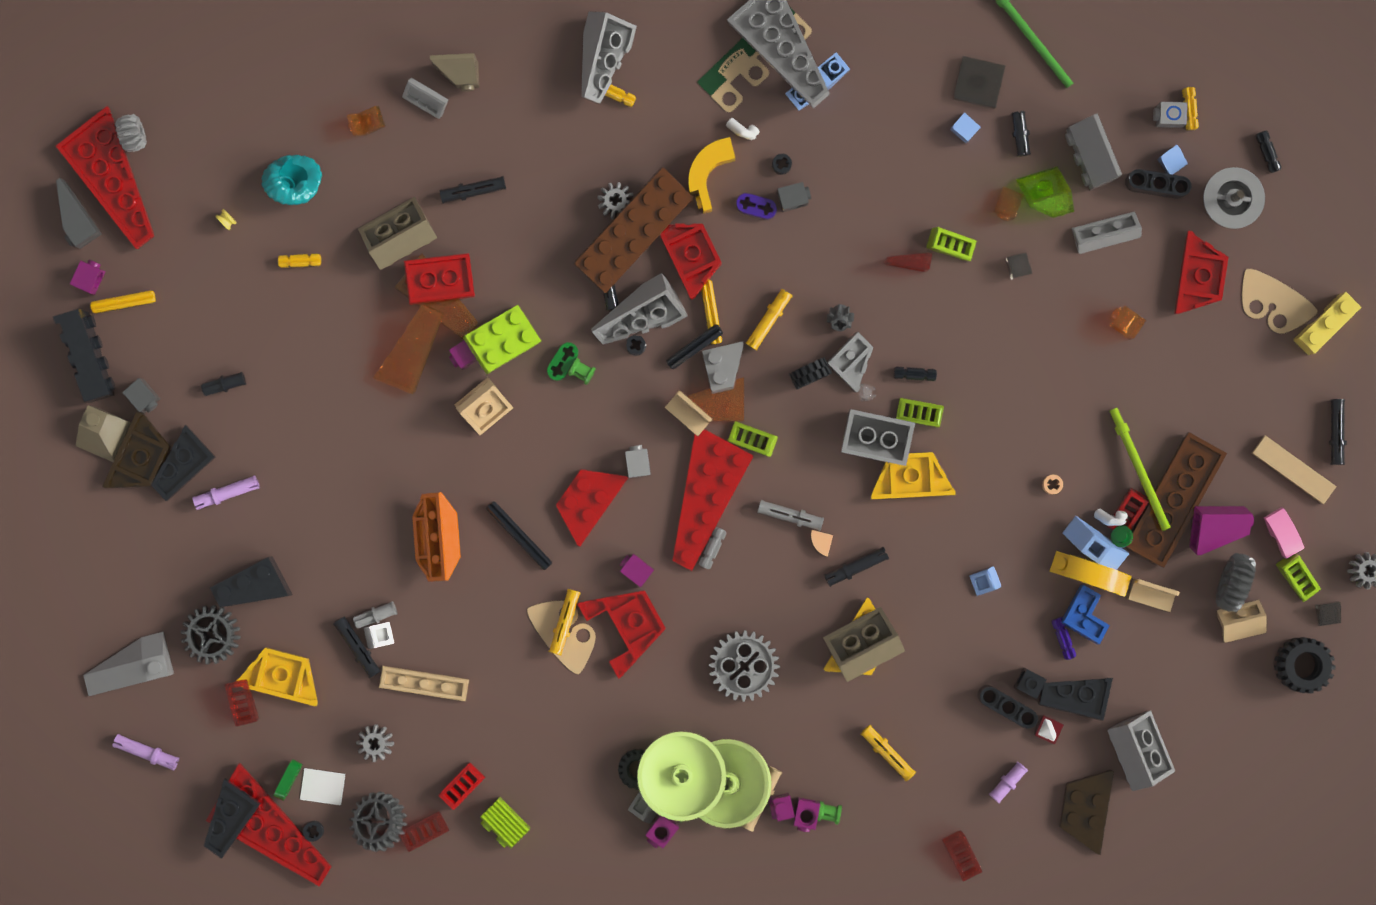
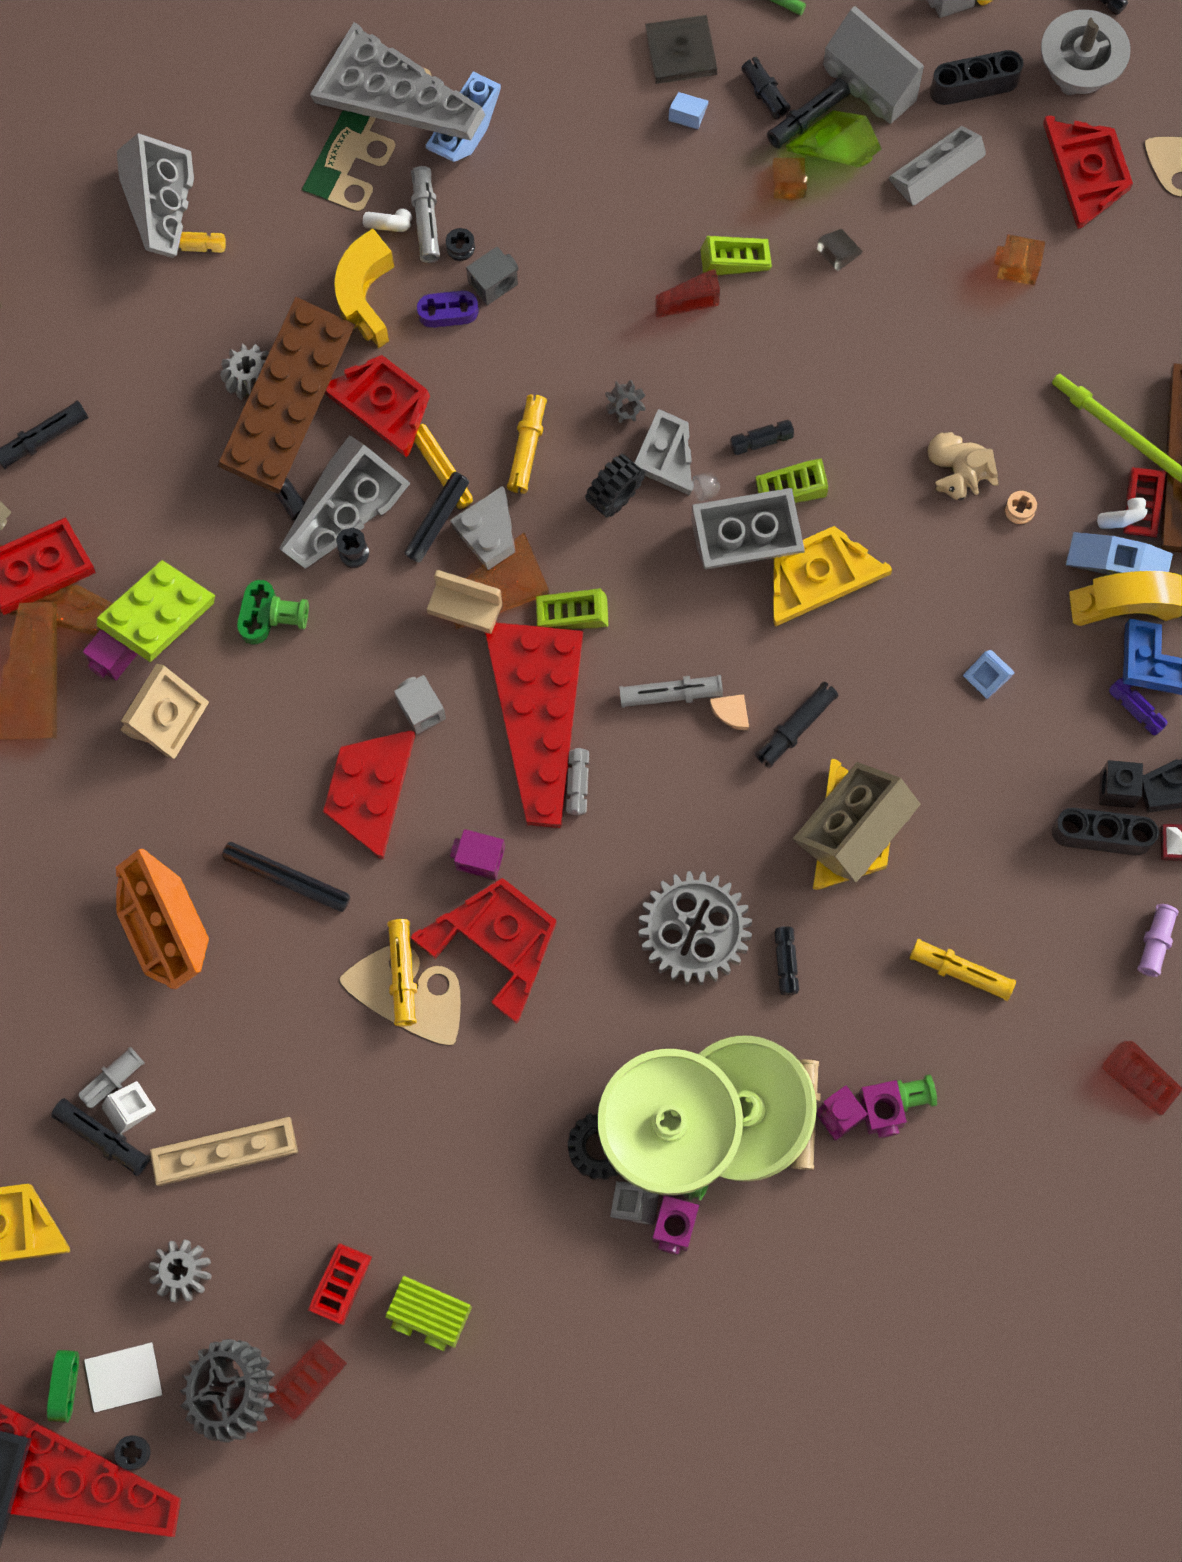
camera: 20 degrees left, 15 degrees down
(768, 133) = (424, 202): none -> light grey pin
(789, 705) = (786, 960): none -> black axle
(1016, 171) = (798, 120): none -> black pin
(1034, 442) = (969, 462): none -> tan animal
(1121, 536) = (1152, 531): green plate -> none
(1172, 160) = (980, 41): light blue slope -> none

